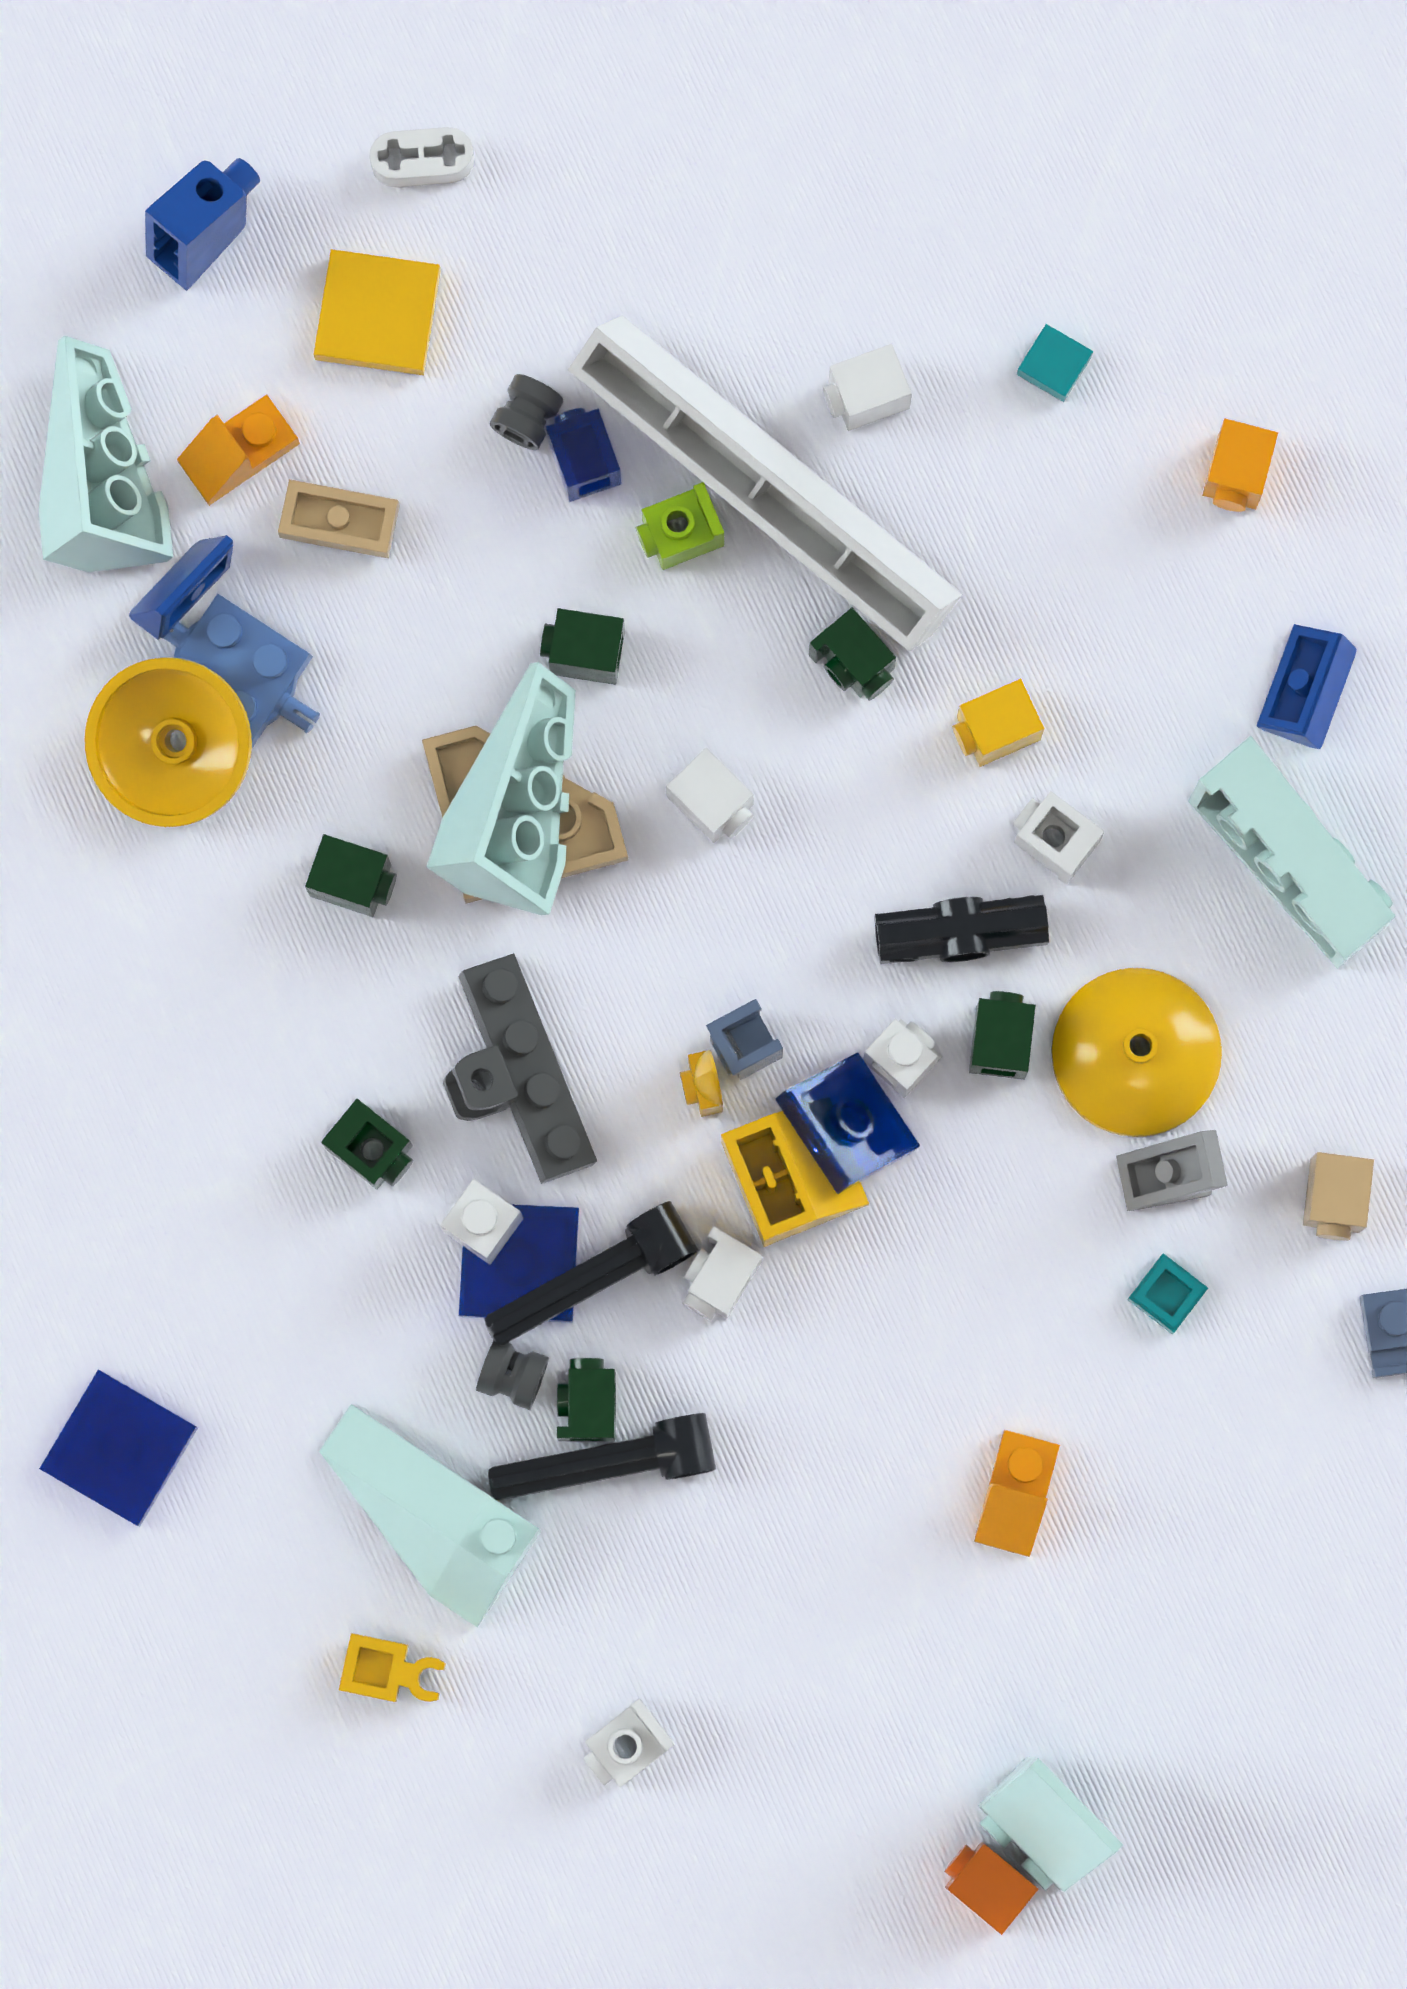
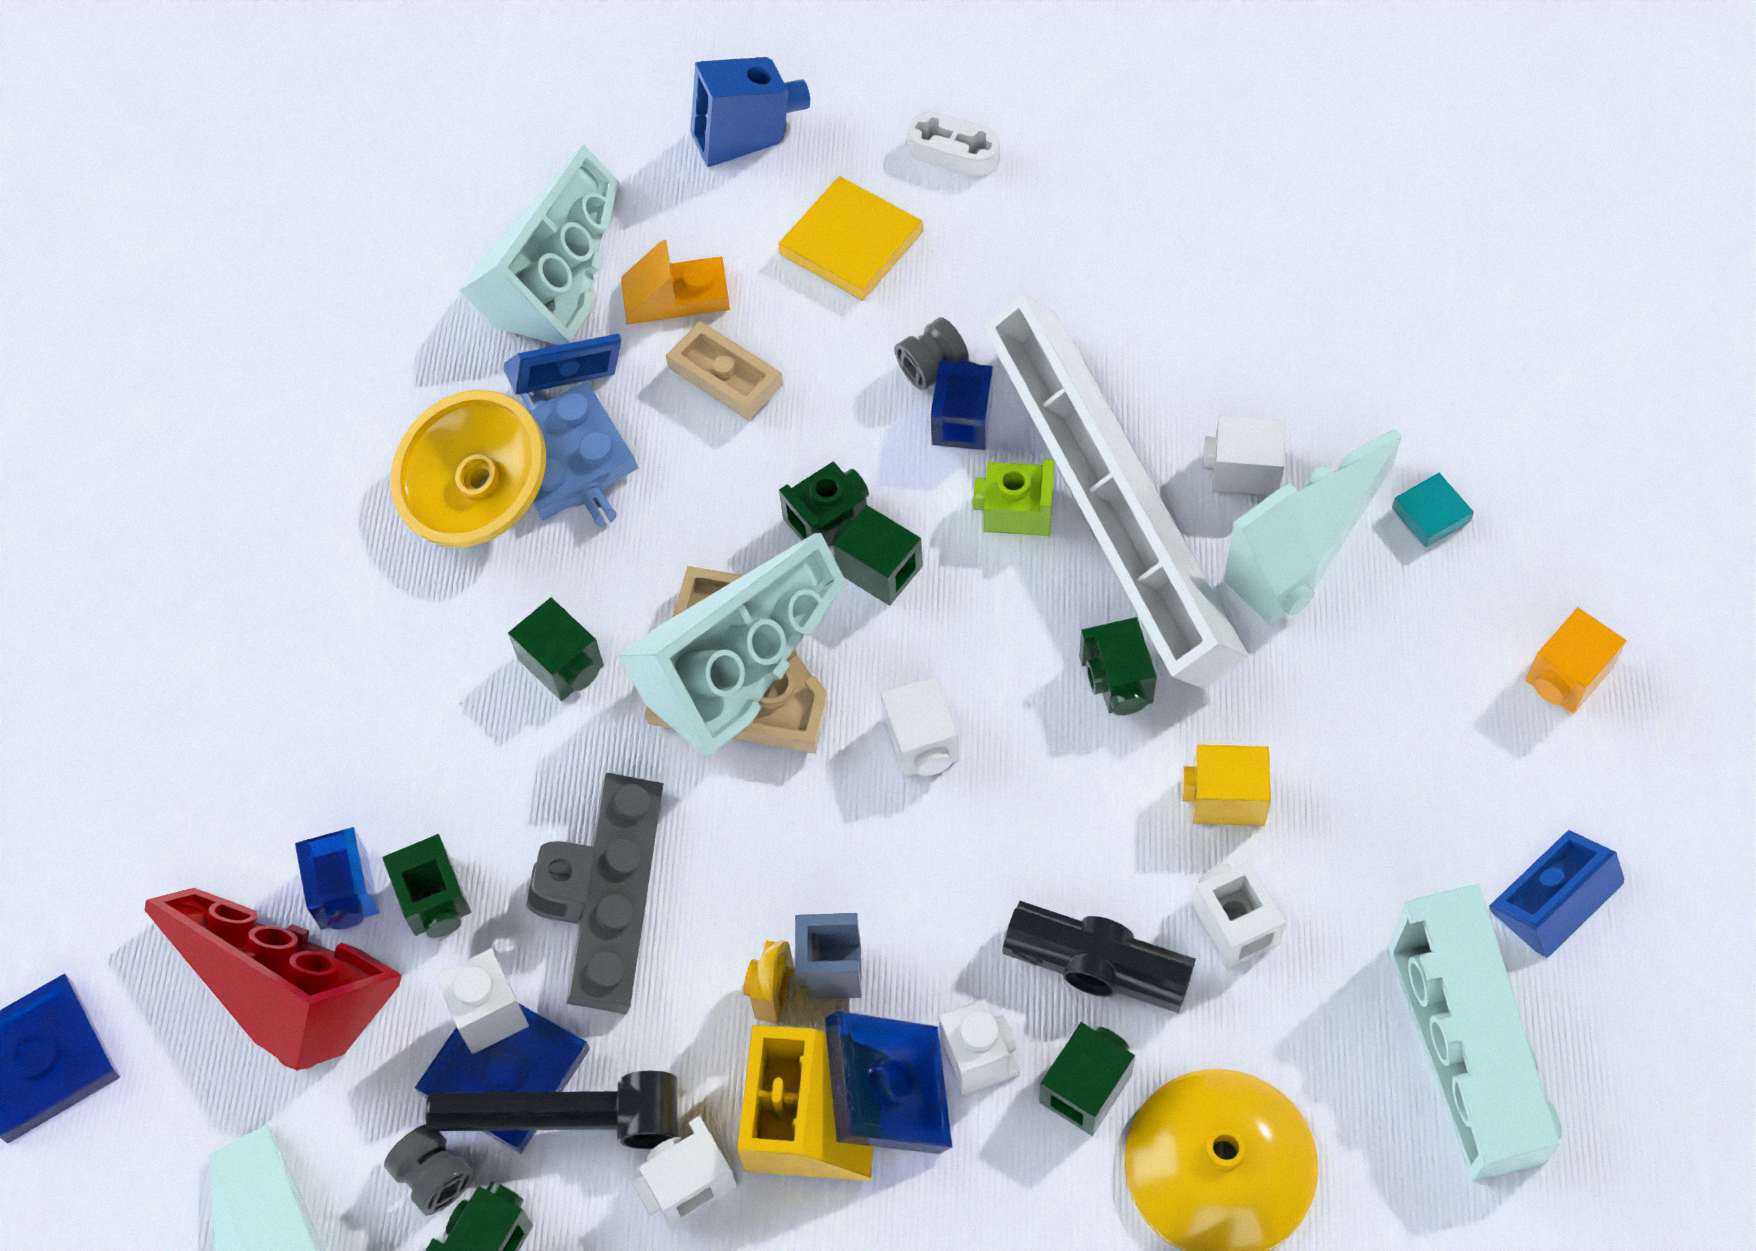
camera: 30 degrees right, 20 degrees down
(285, 1177) = (337, 879): none -> clear blue brick
(299, 1288) = (276, 984): none -> red wedge
(512, 637) = (823, 501): none -> dark green brick
(952, 468) = (1295, 534): none -> light aqua wedge

